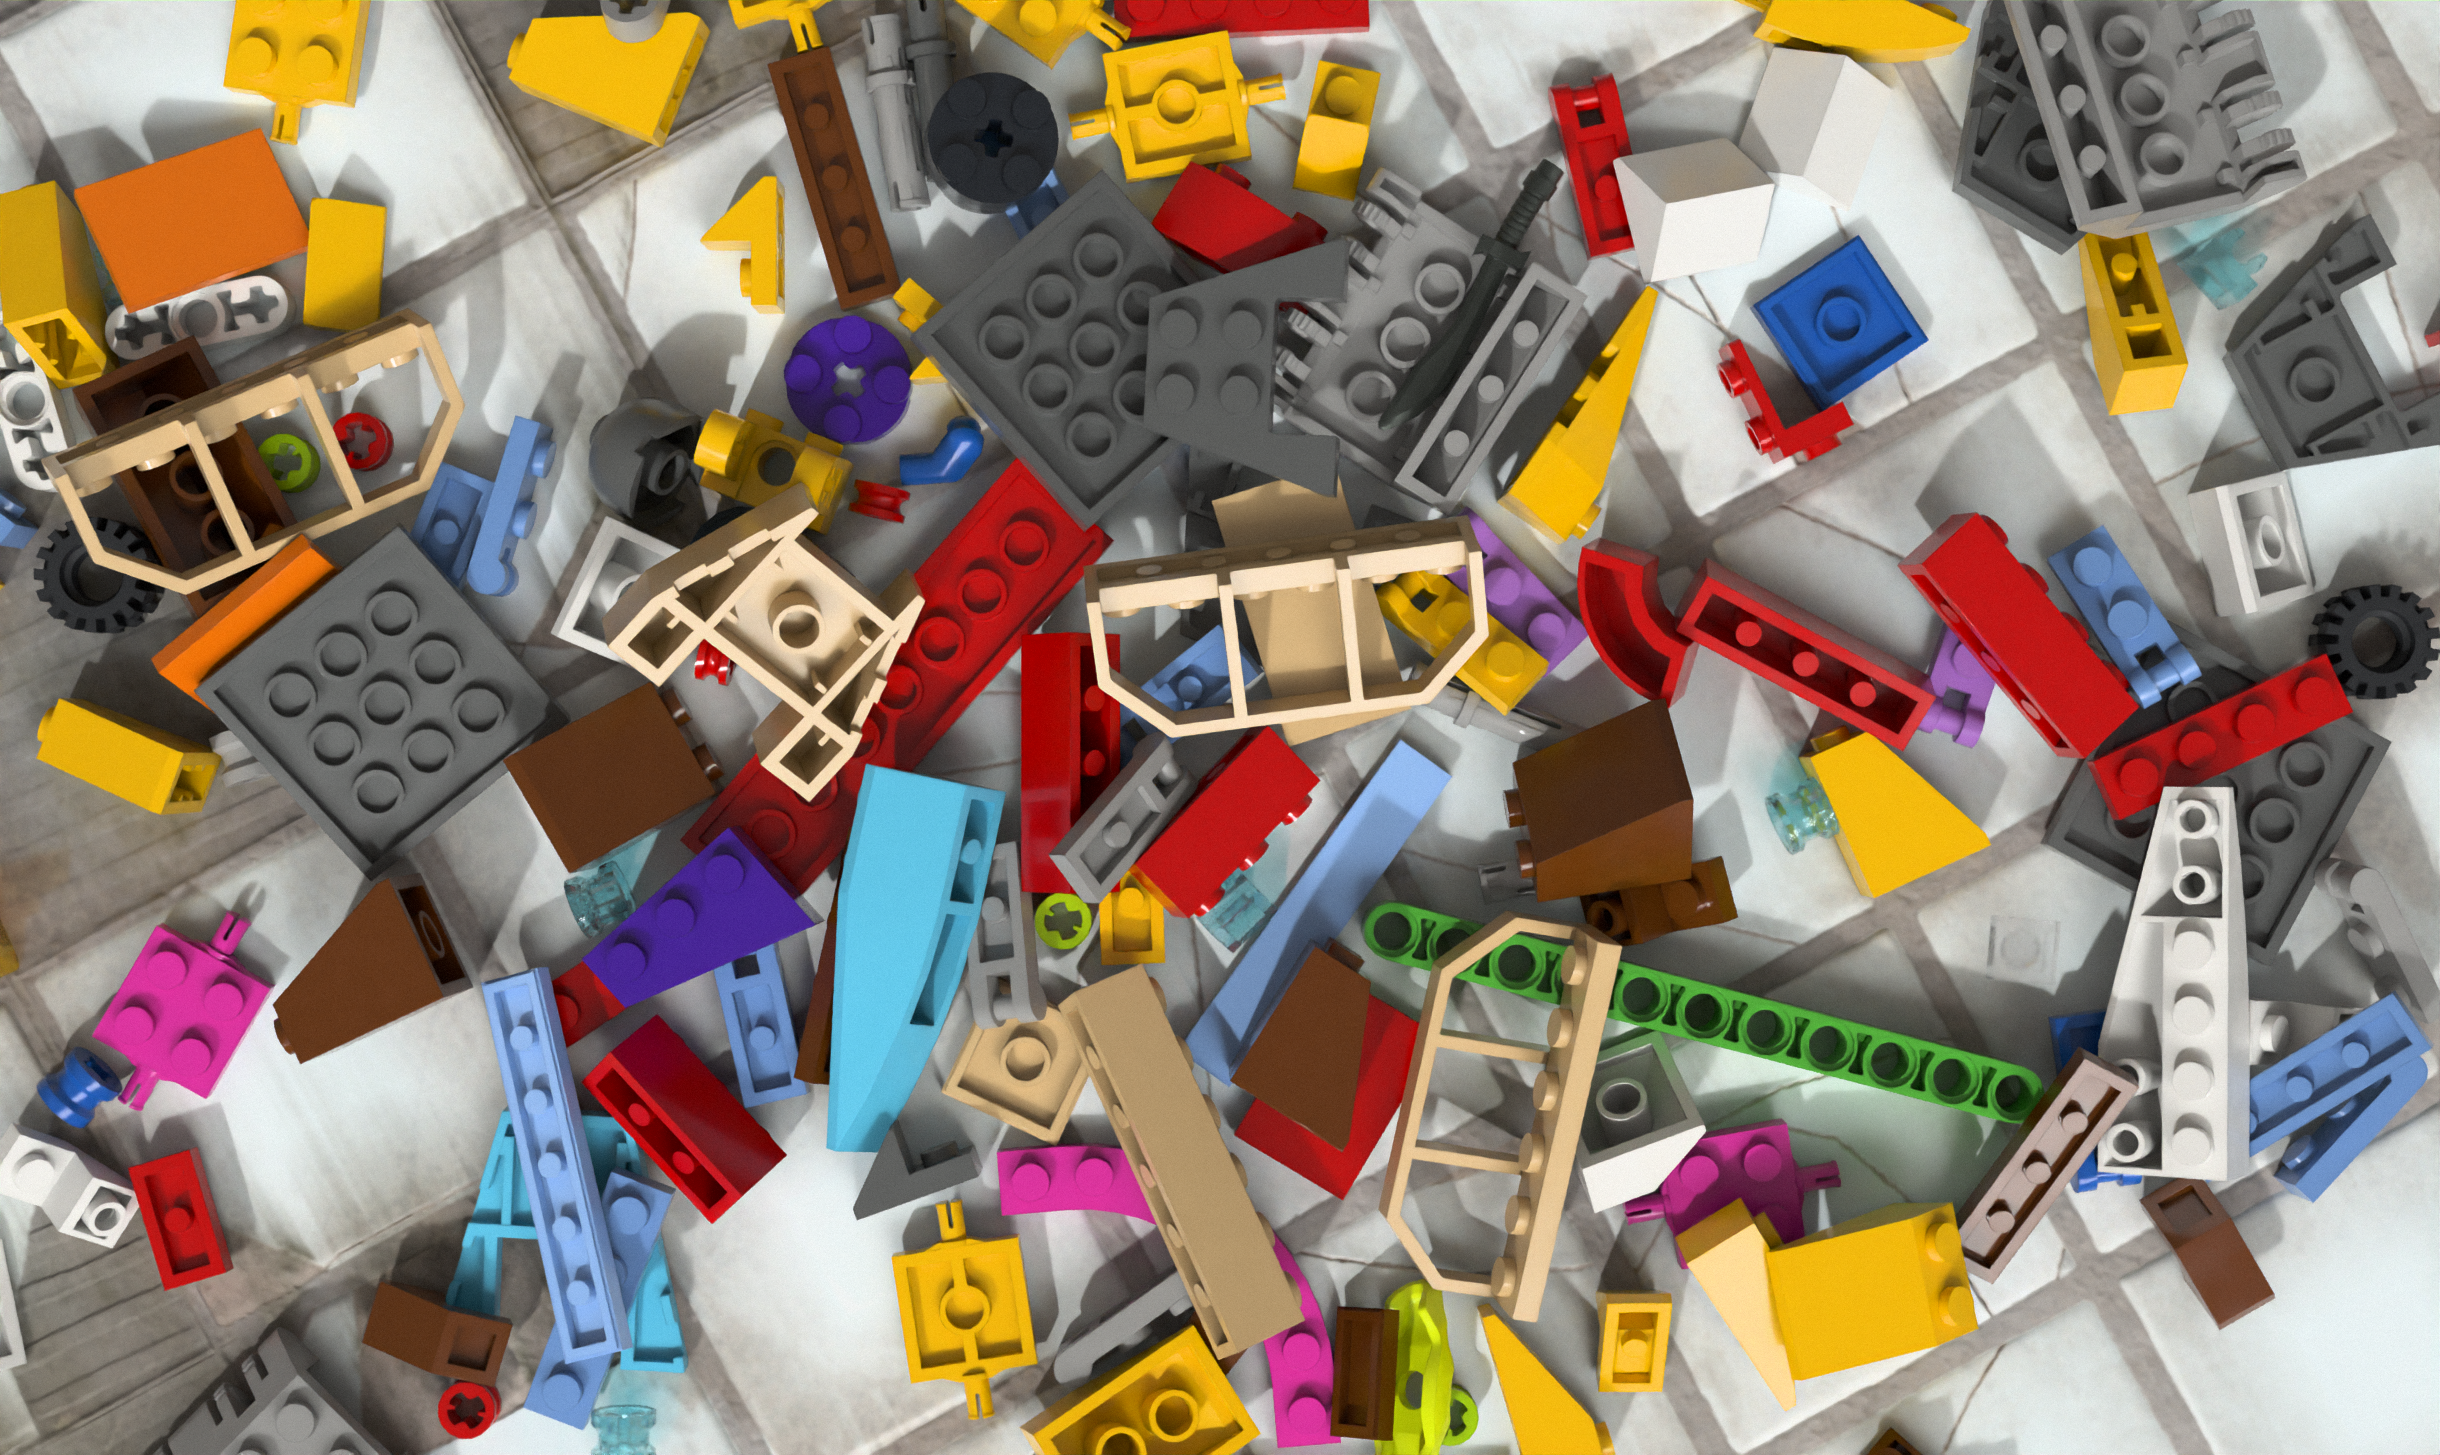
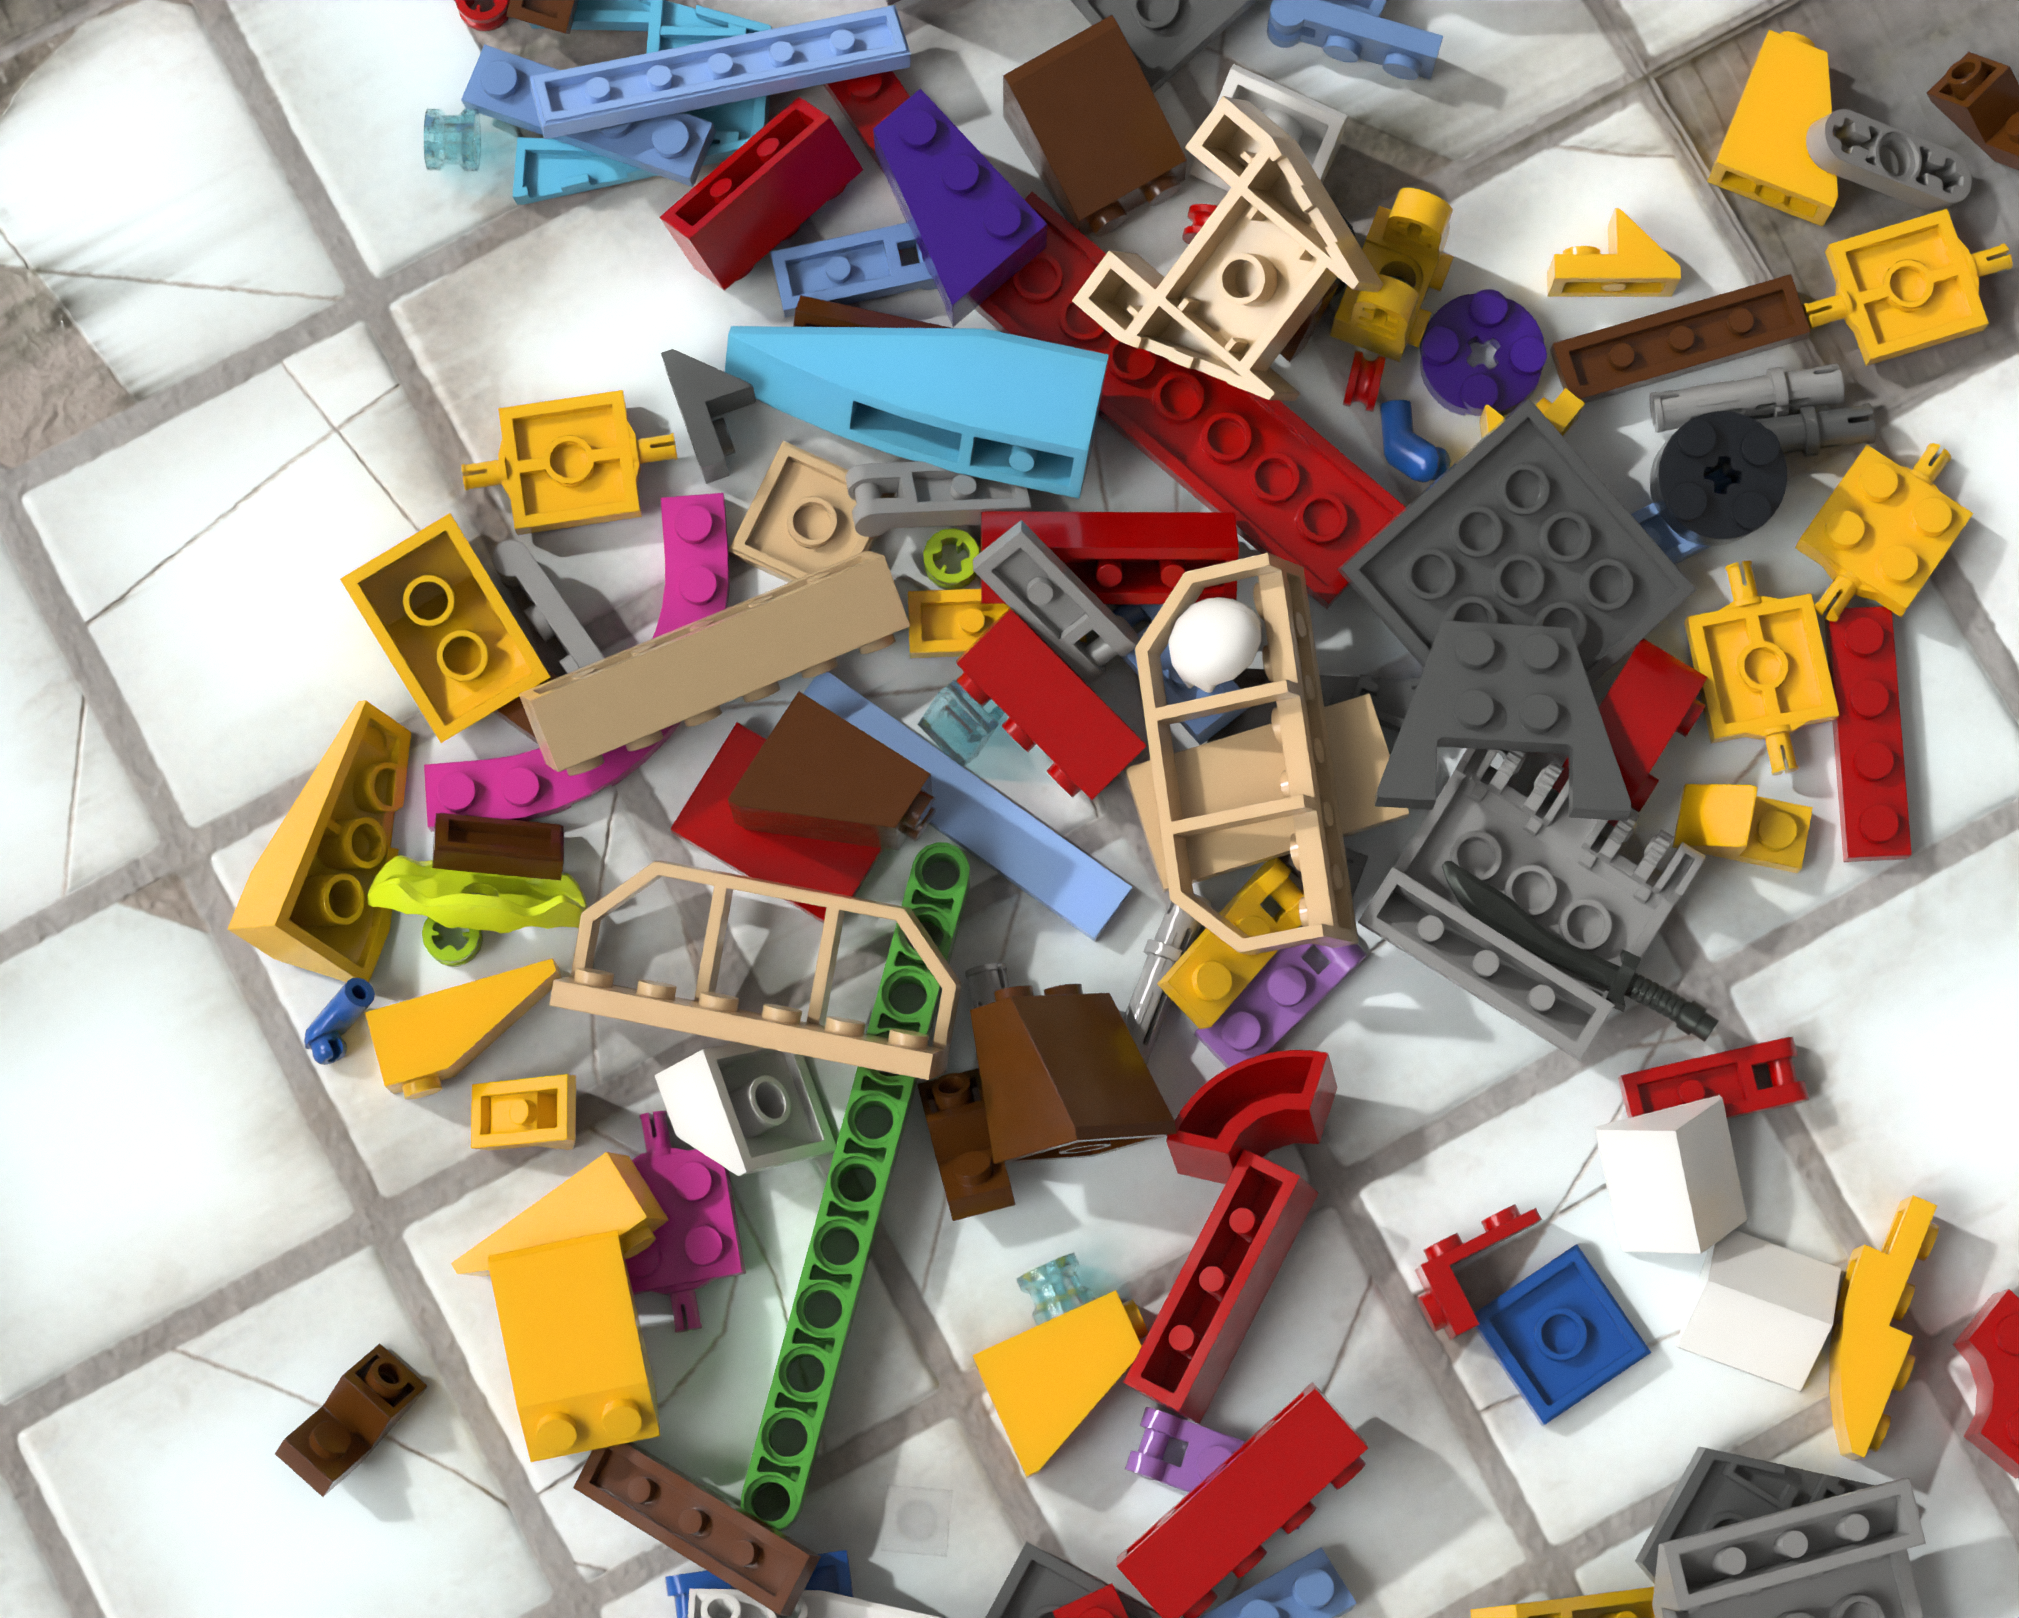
camera: 90 degrees right, 10 degrees down
(600, 899) = (976, 116): clear light blue wheel -> none
(643, 458) = (1399, 149): dark grey cylinder -> none
(1171, 657) = (1214, 642): none -> white hair
(1572, 457) = (1410, 1050): yellow wedge -> none

